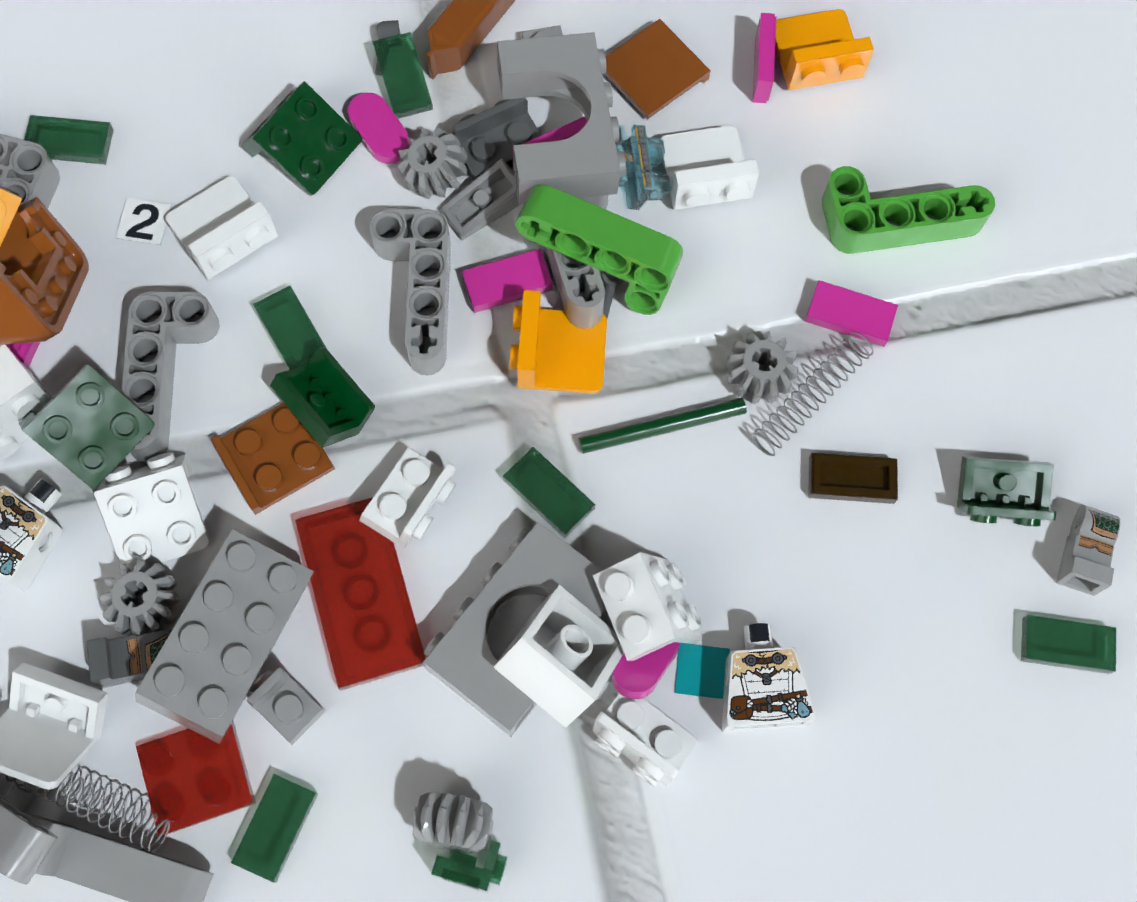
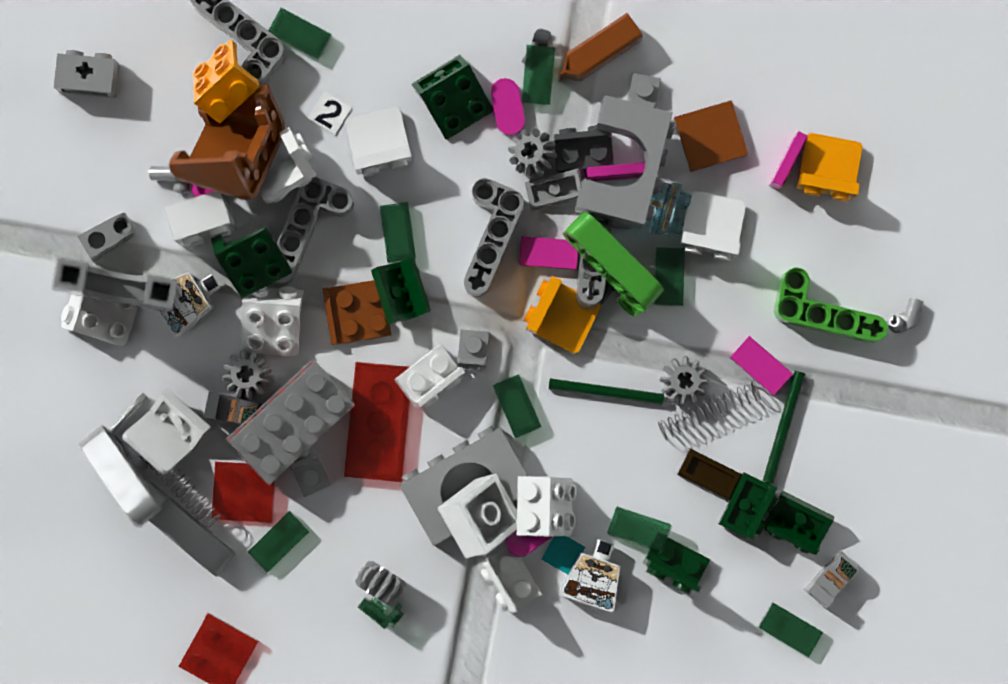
camera: 20 degrees right, 15 degrees up
(111, 268) = (290, 173): none -> white bracket
(456, 440) = (473, 349): none -> light grey bracket
(693, 268) = (670, 274): none -> clear green tile
(795, 589) = (639, 529): none -> clear green tile
(868, 616) = (679, 564): none -> dark green bracket
(920, 380) = (783, 427): none -> dark green bar
(930, 497) = (749, 506): none -> dark green bracket
(1008, 182) = (907, 319): none -> light grey arm

